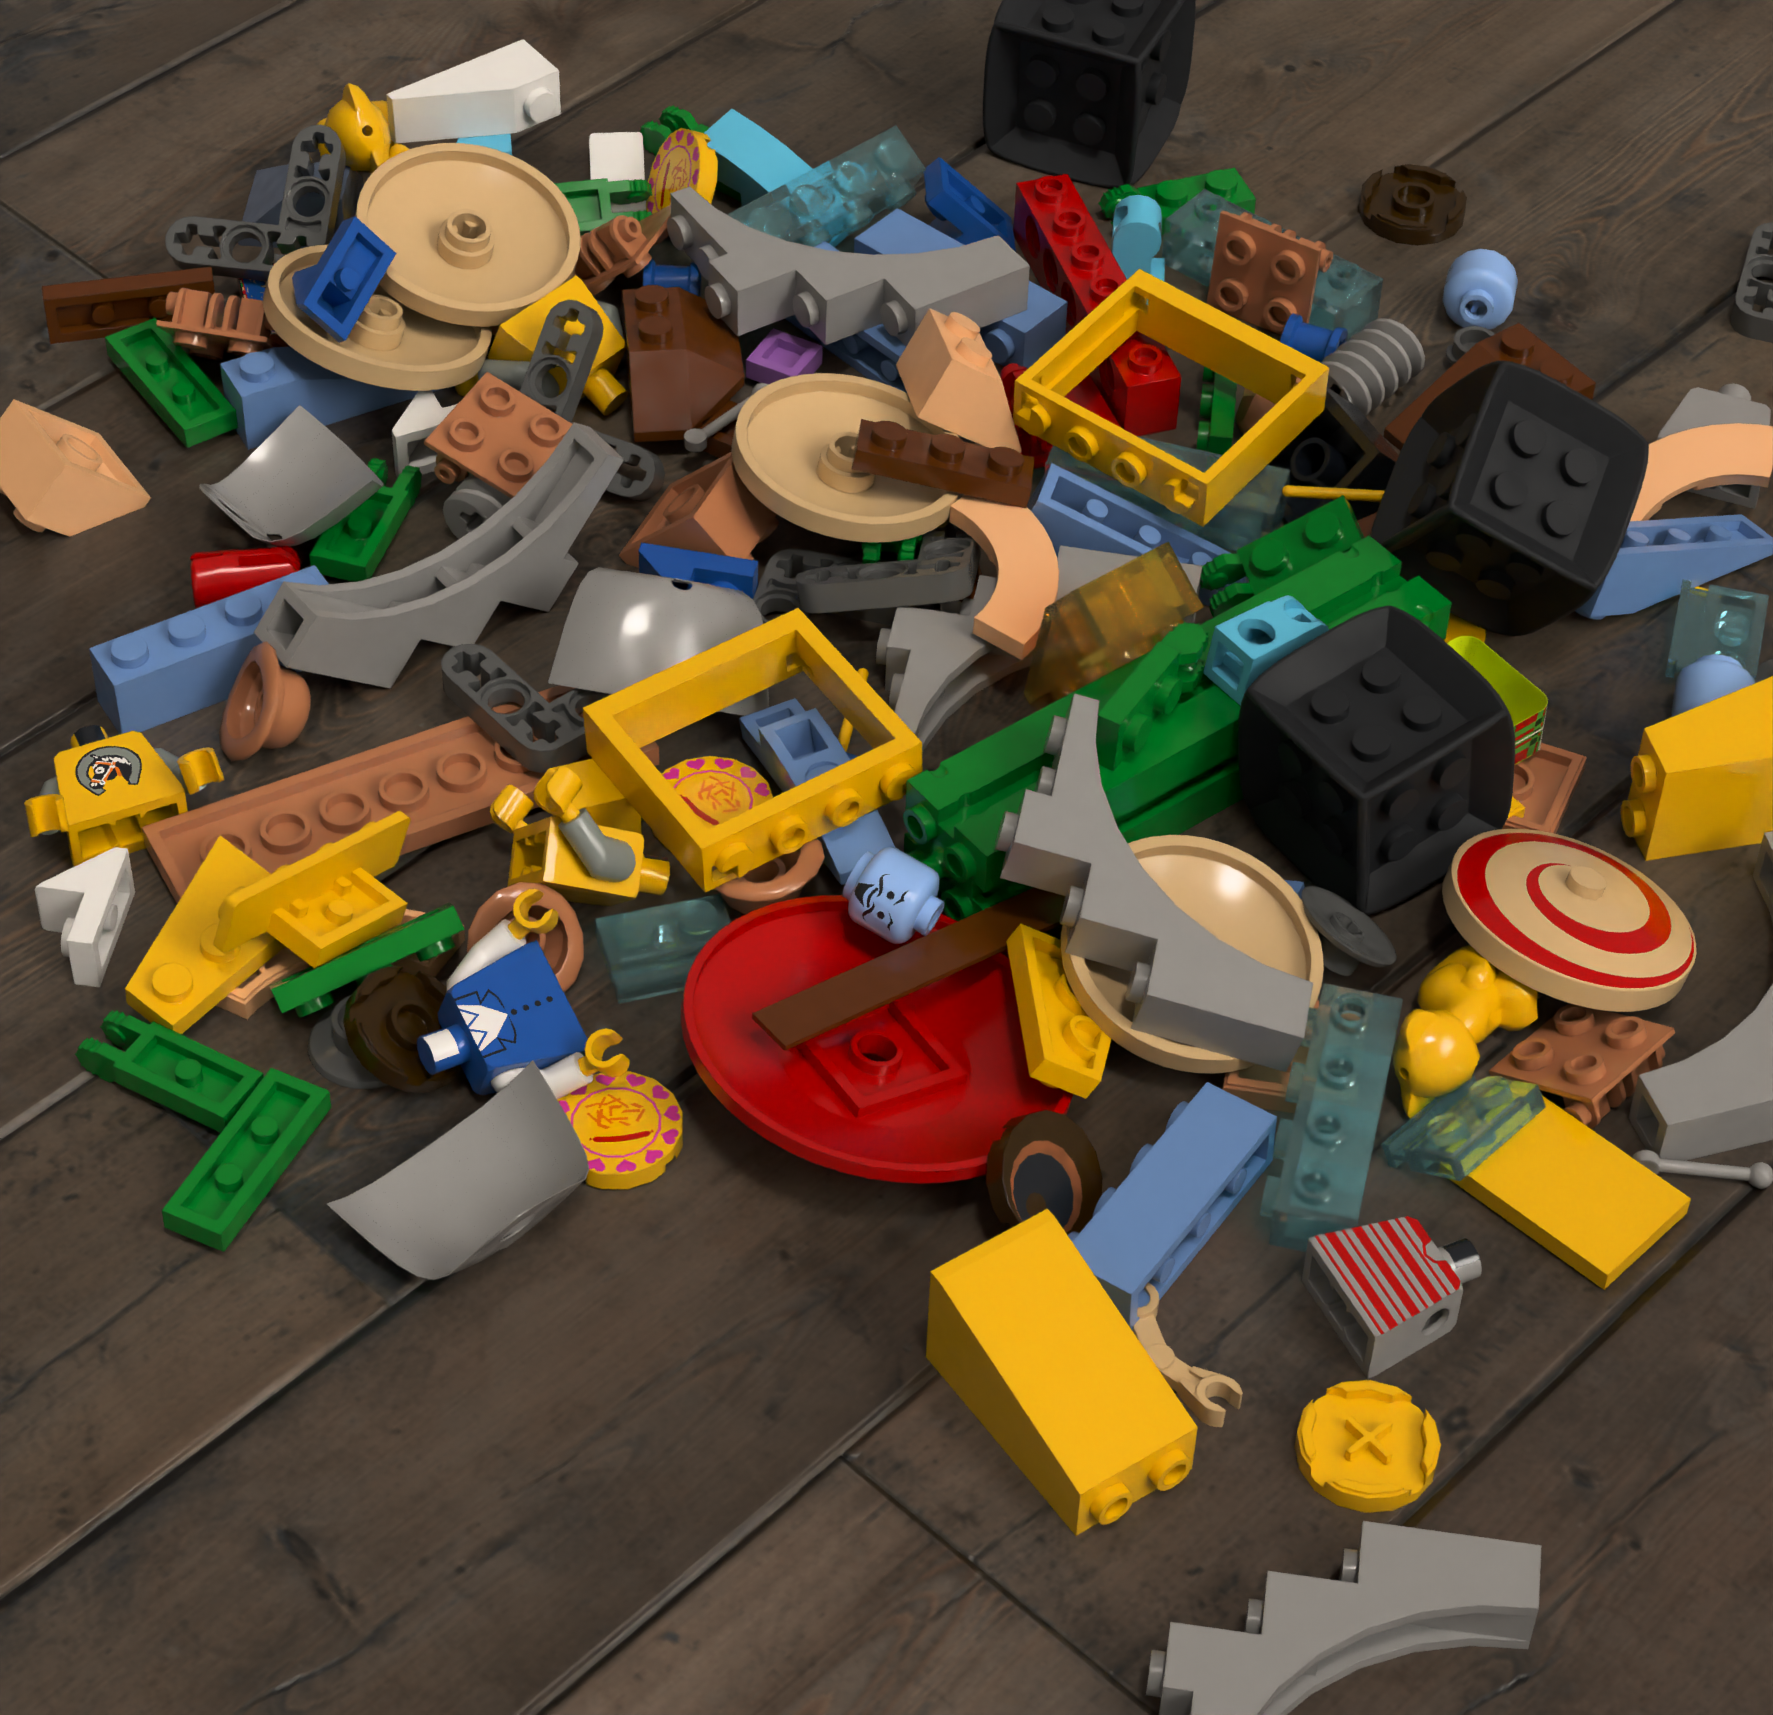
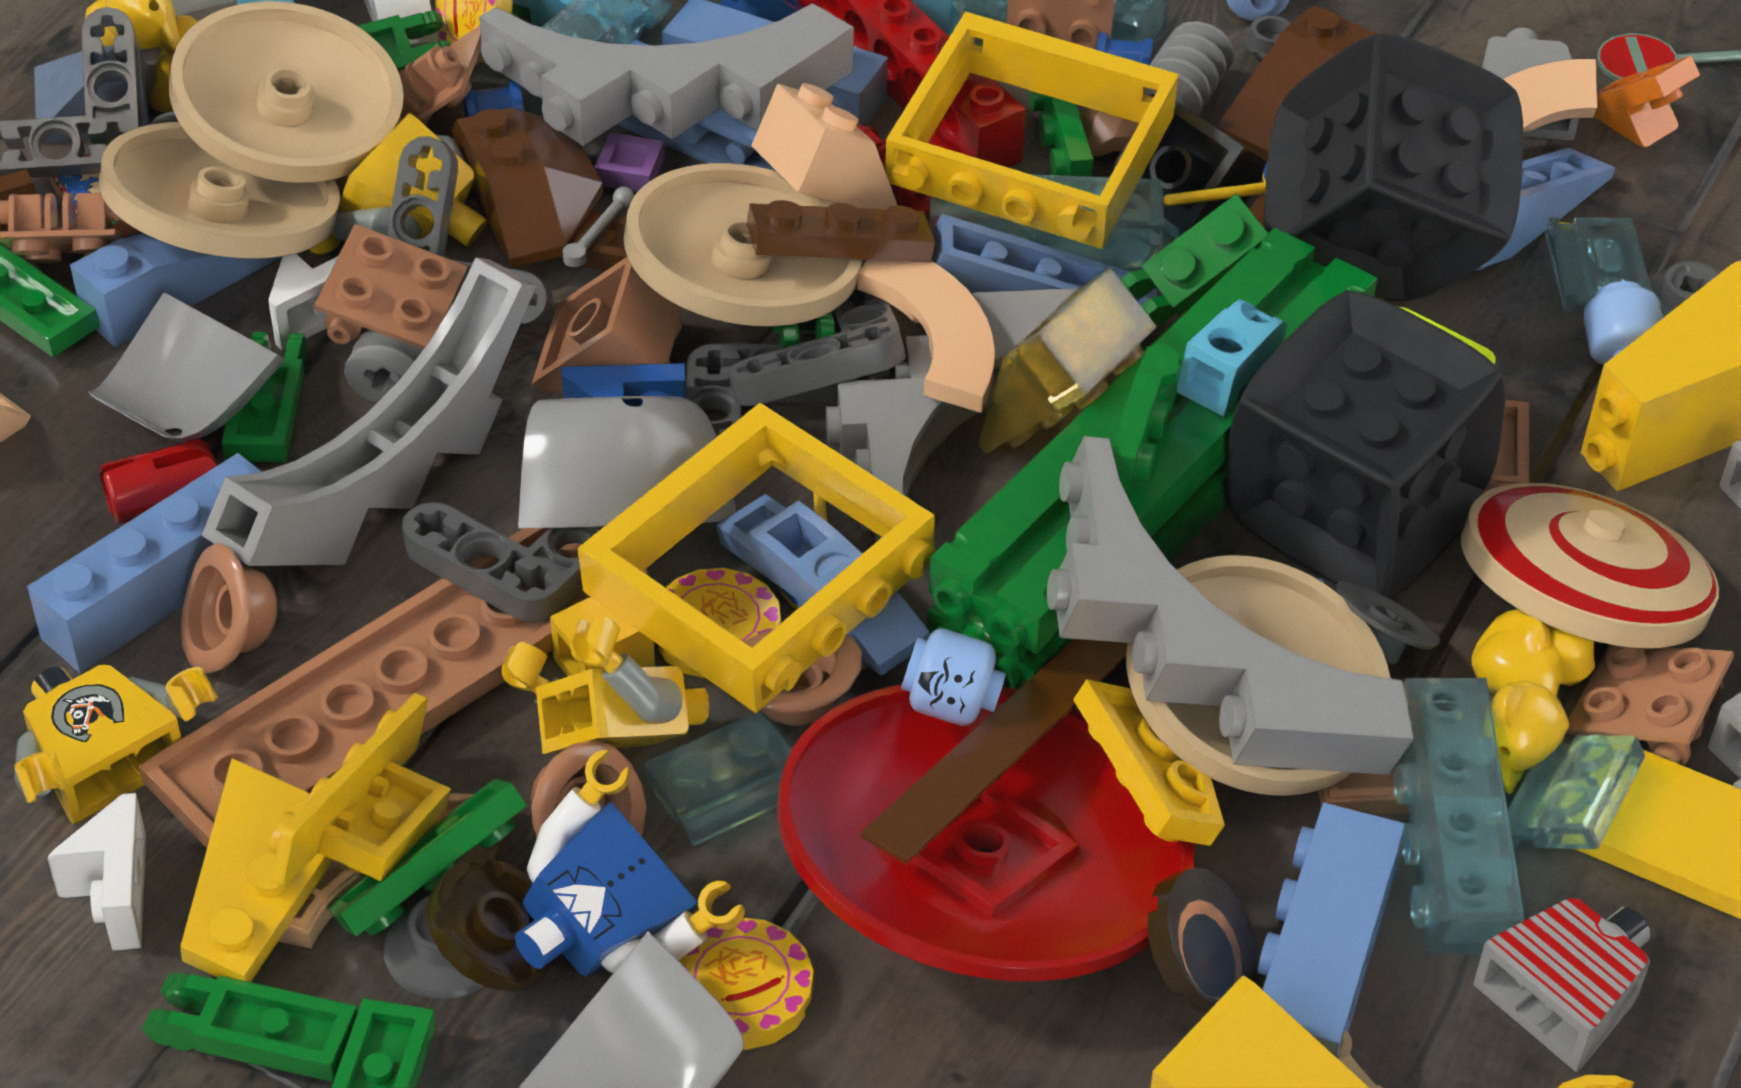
camera: 15 degrees left, 0 degrees up
(343, 278) = (182, 155): blue slope -> none

